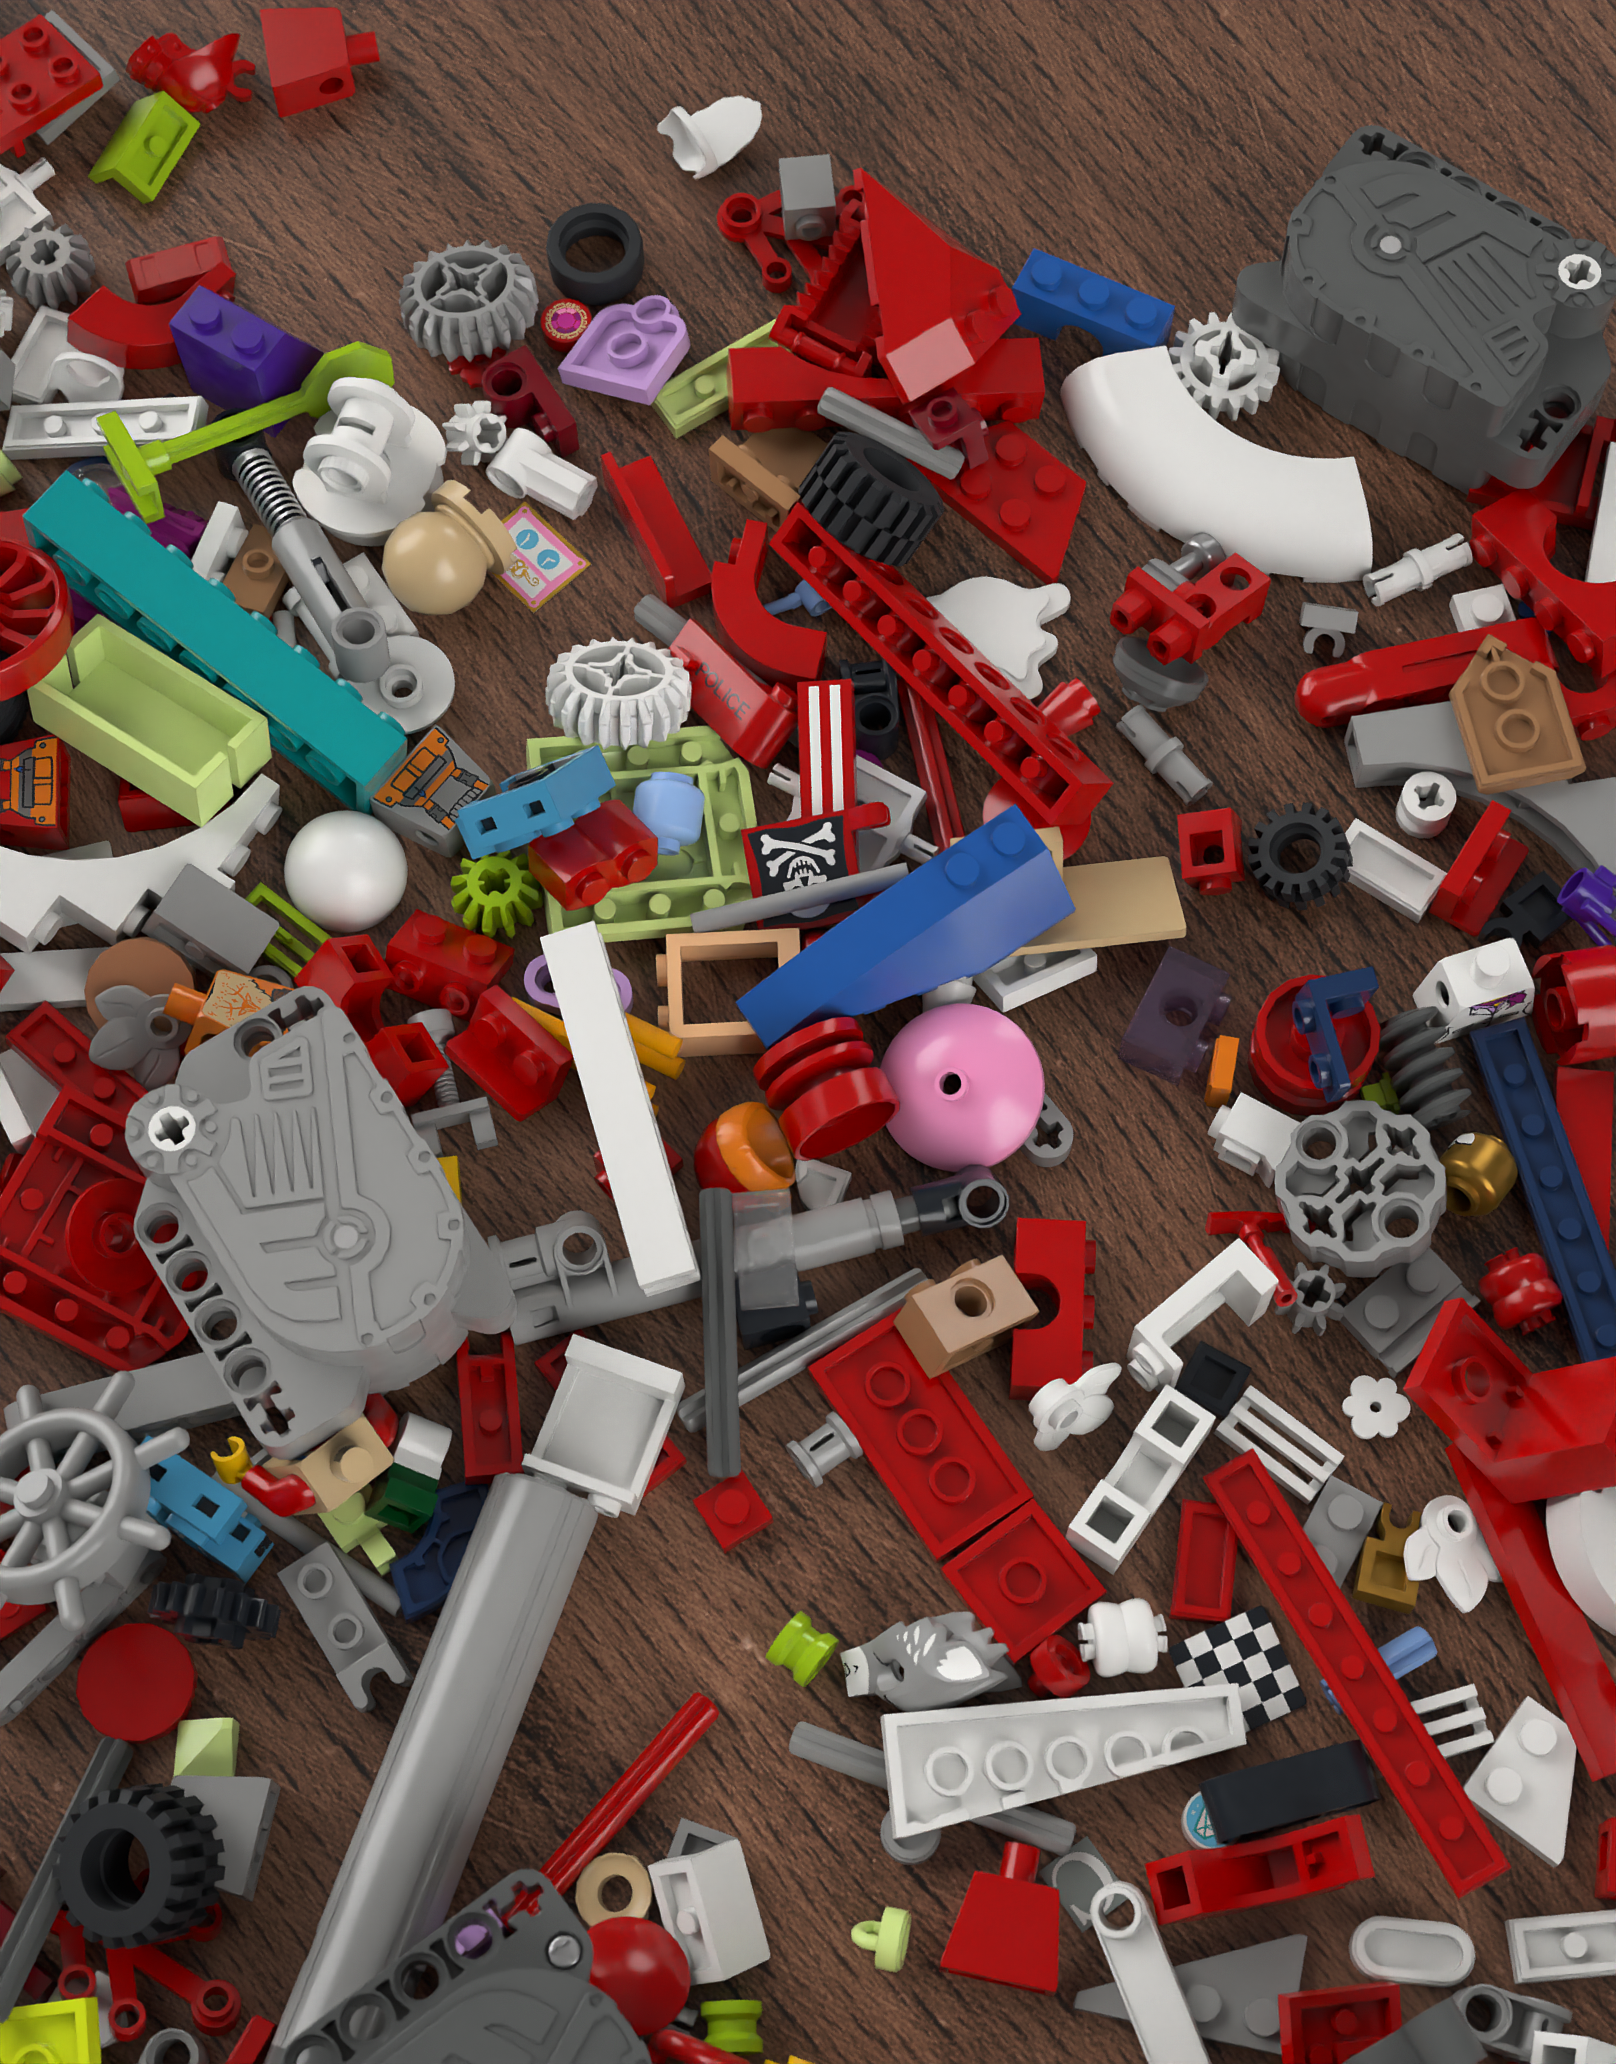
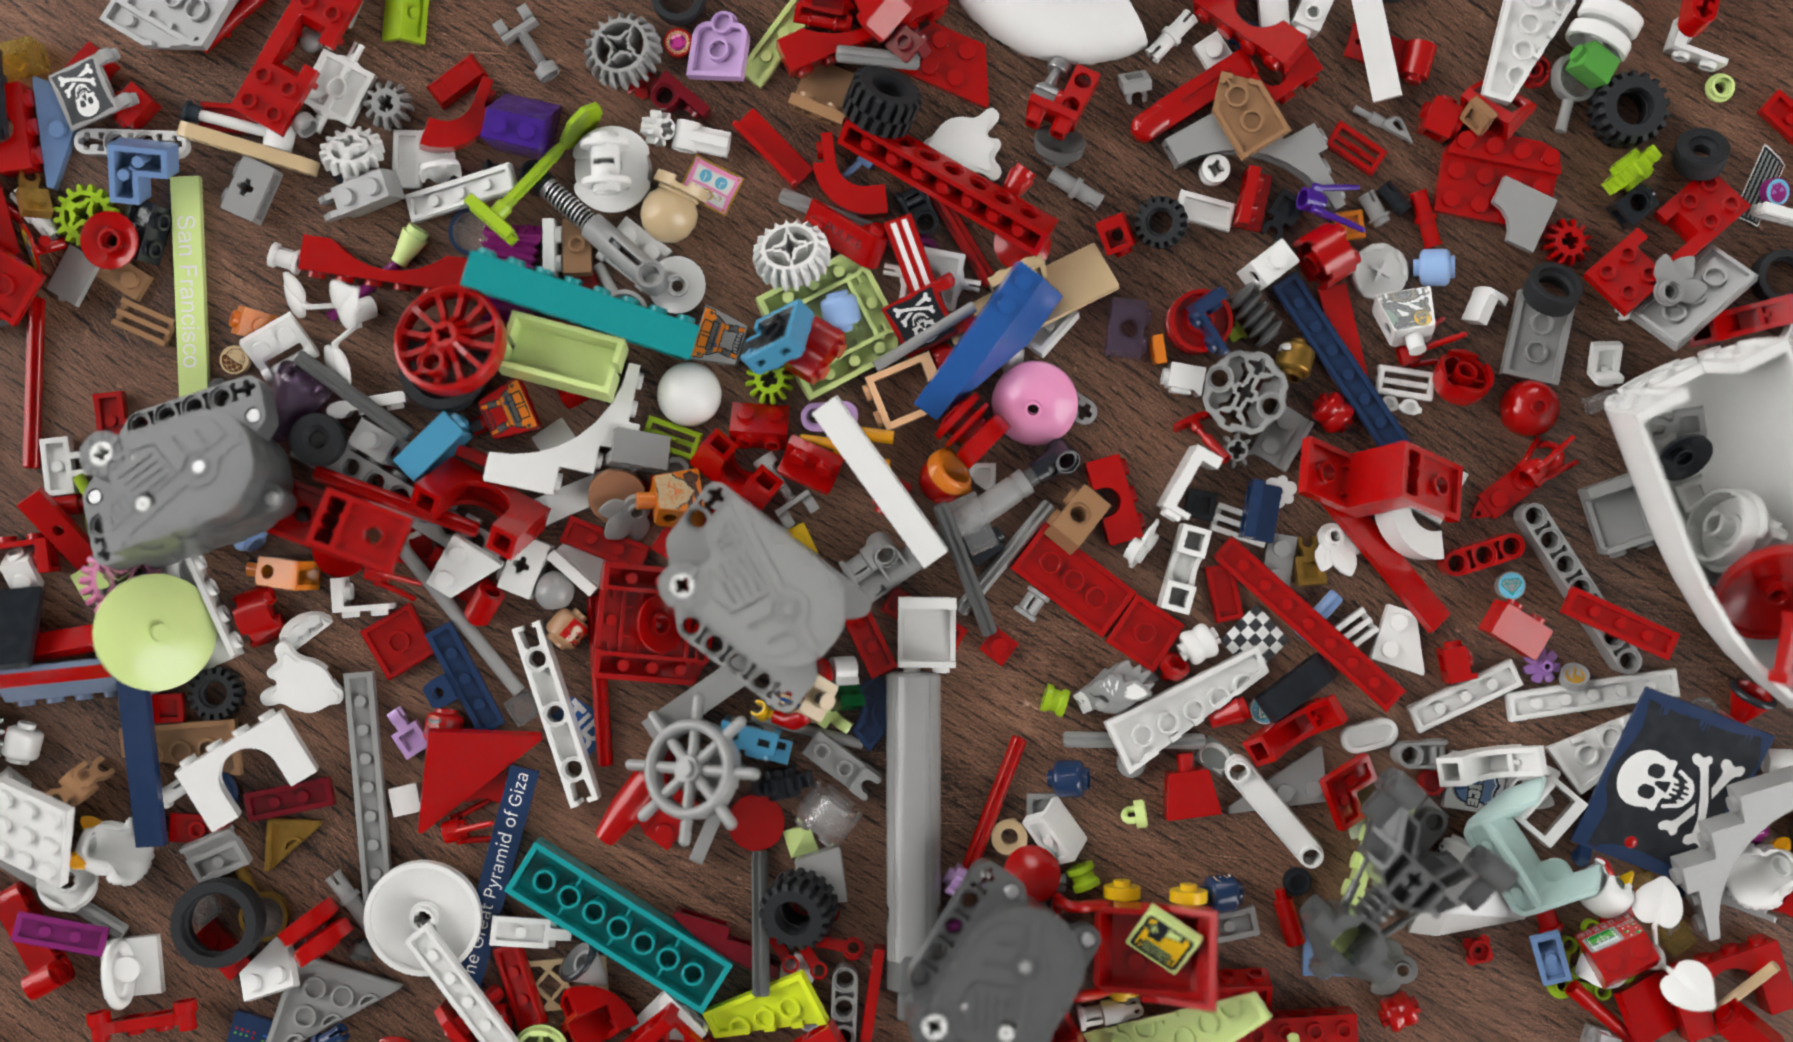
camera: 20 degrees left, 20 degrees up
(275, 1706) = (827, 814): none -> clear brick
(329, 294) = (545, 69): none -> light grey bar
(775, 1814) = (1069, 778): none -> dark blue head
(1141, 1800) = (1230, 714): none -> red cone
(1324, 1426) = (1260, 511): none -> dark blue panel

